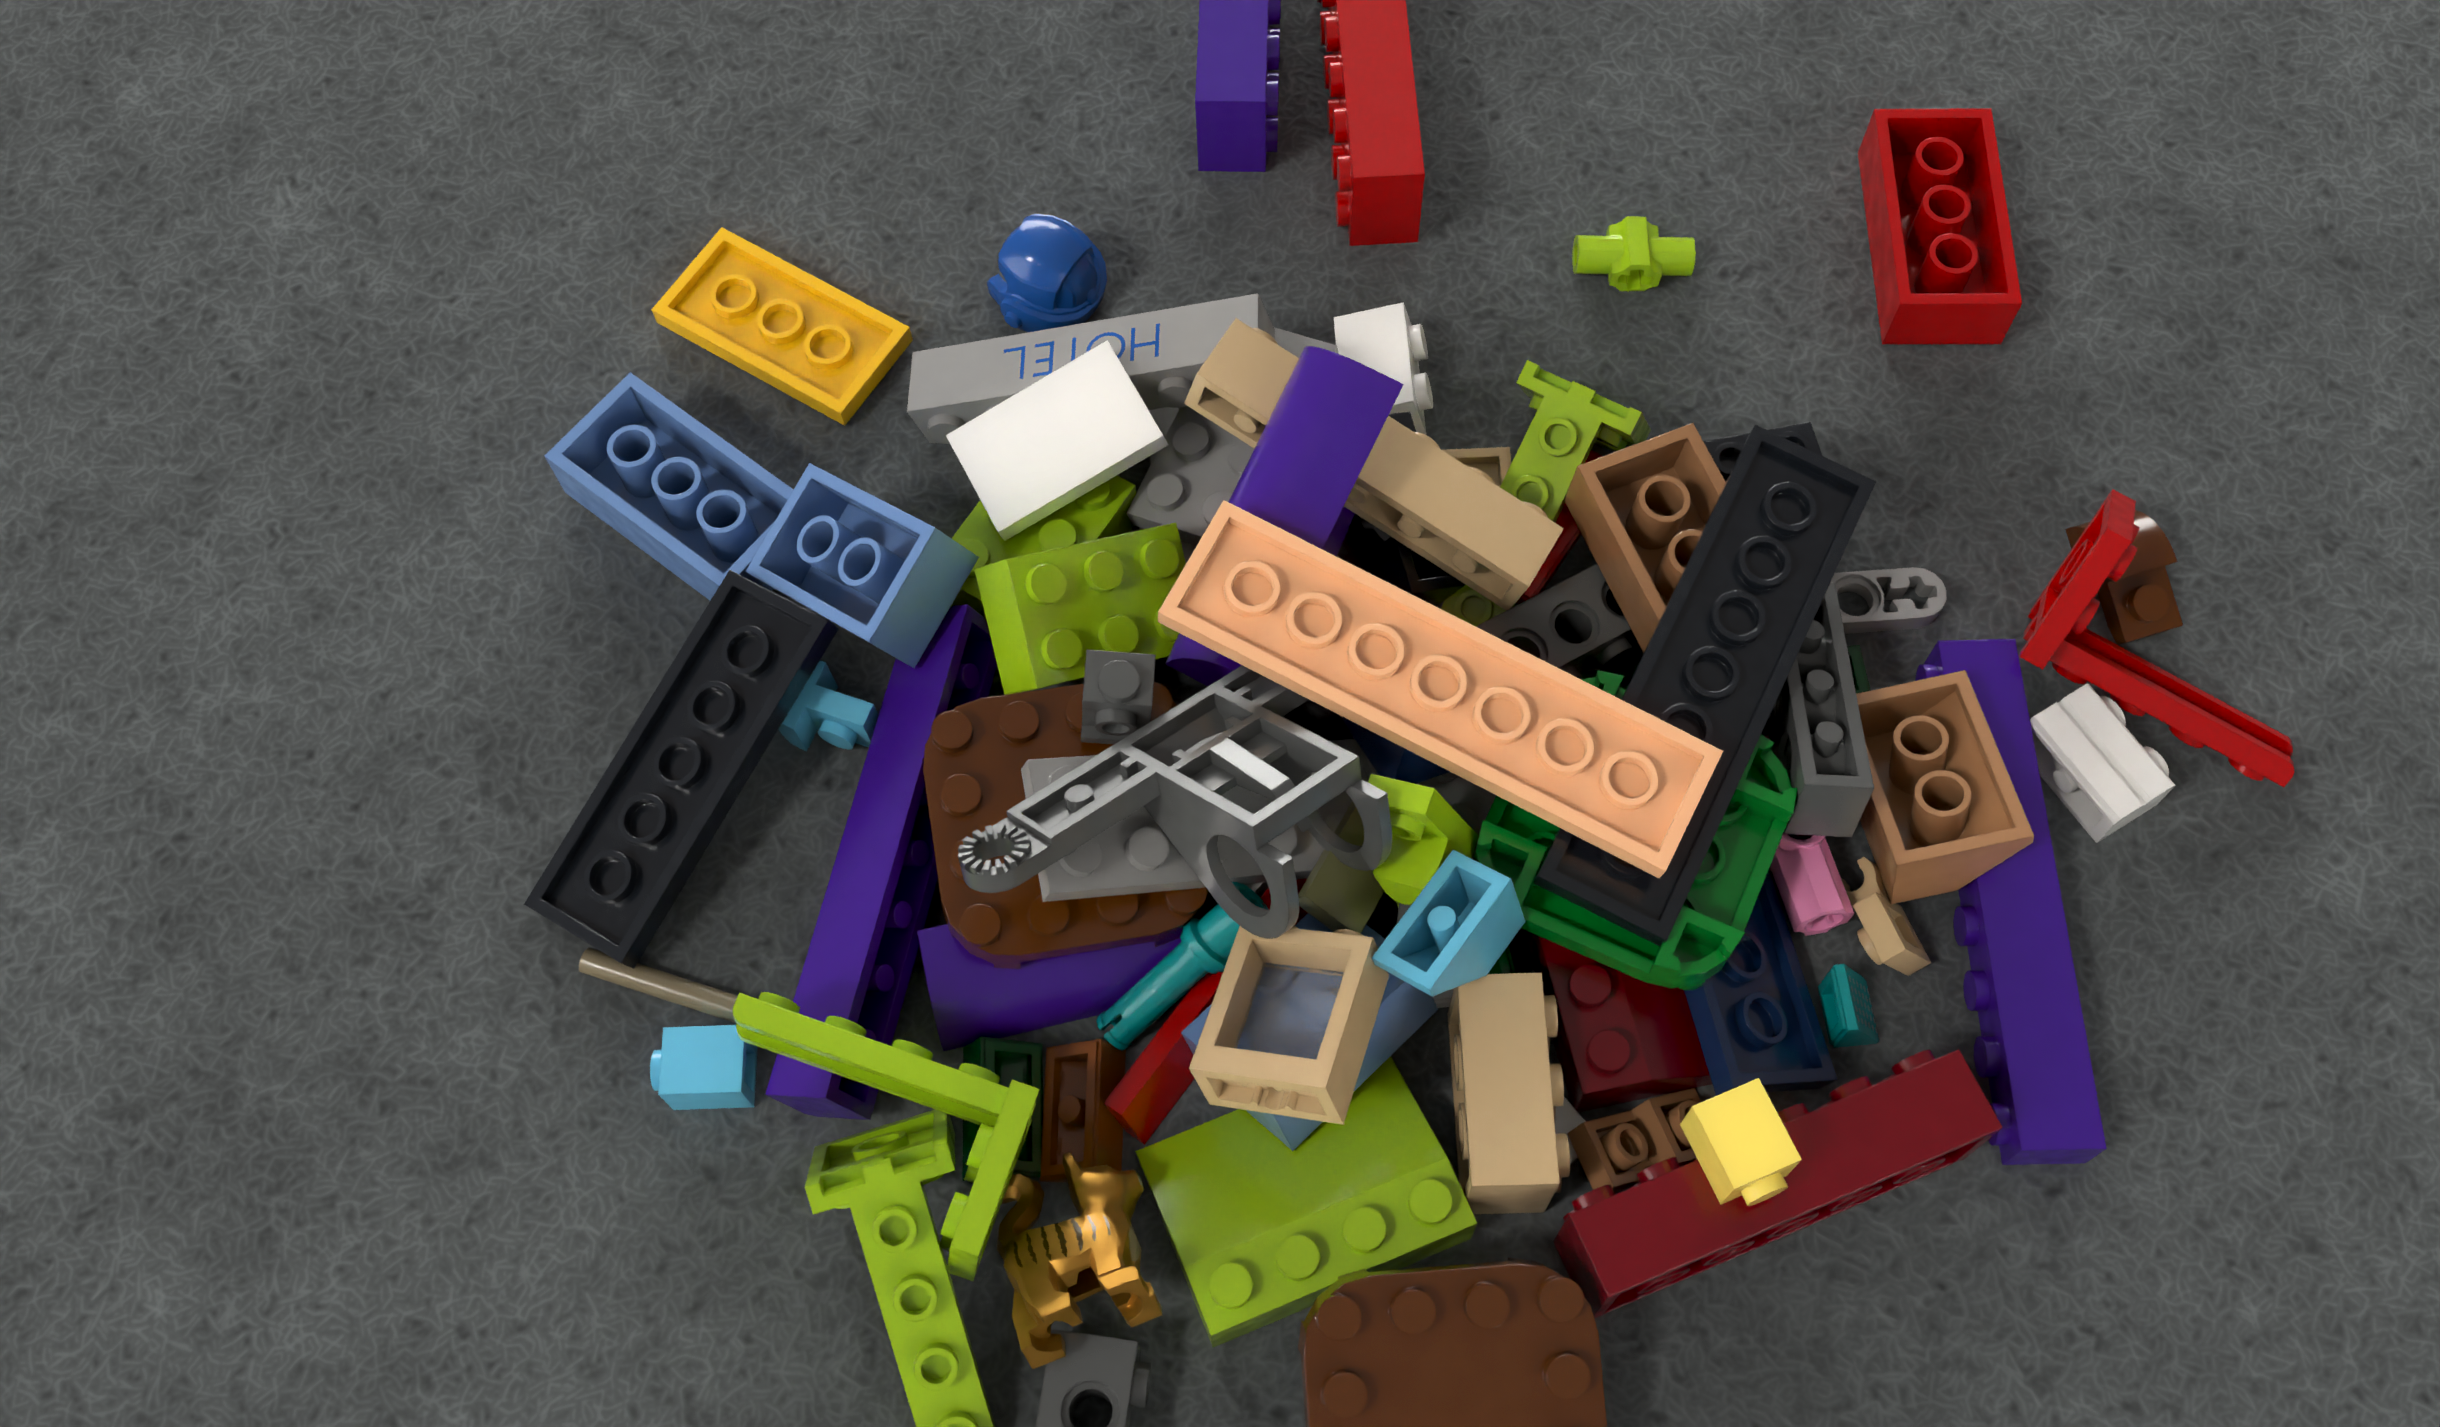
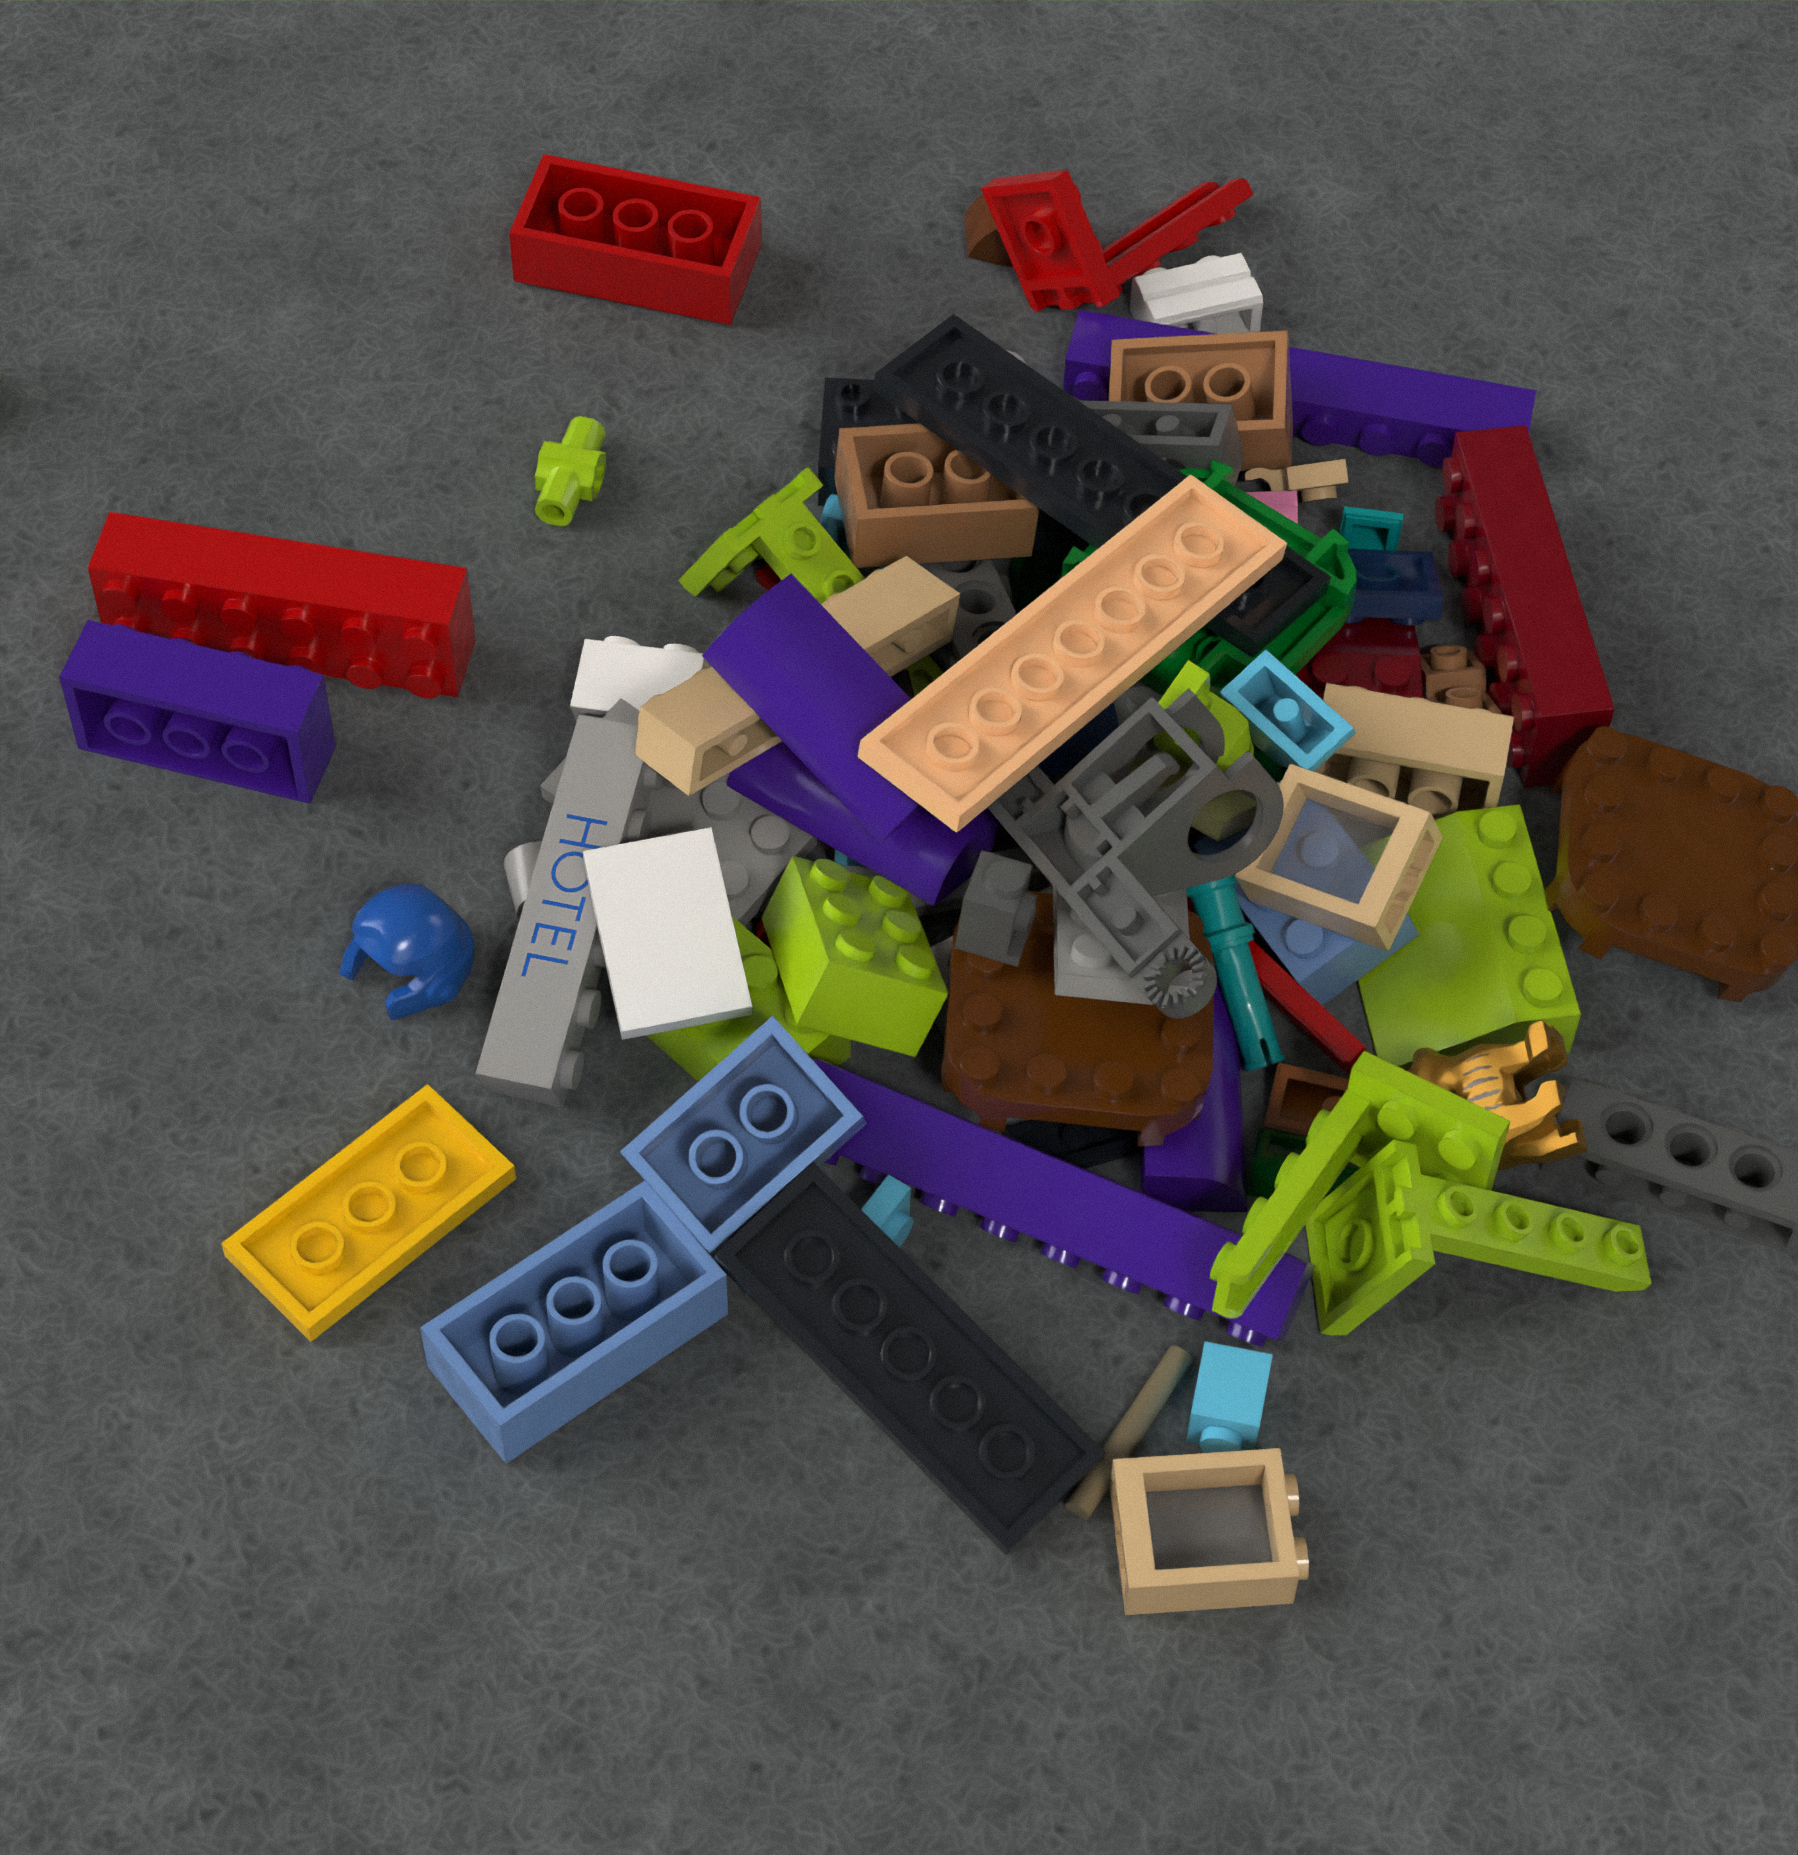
camera: 80 degrees left, 10 degrees down
(561, 1074) = (1206, 1531): none -> tan window
(1741, 1144) = (1515, 576): light yellow brick -> none

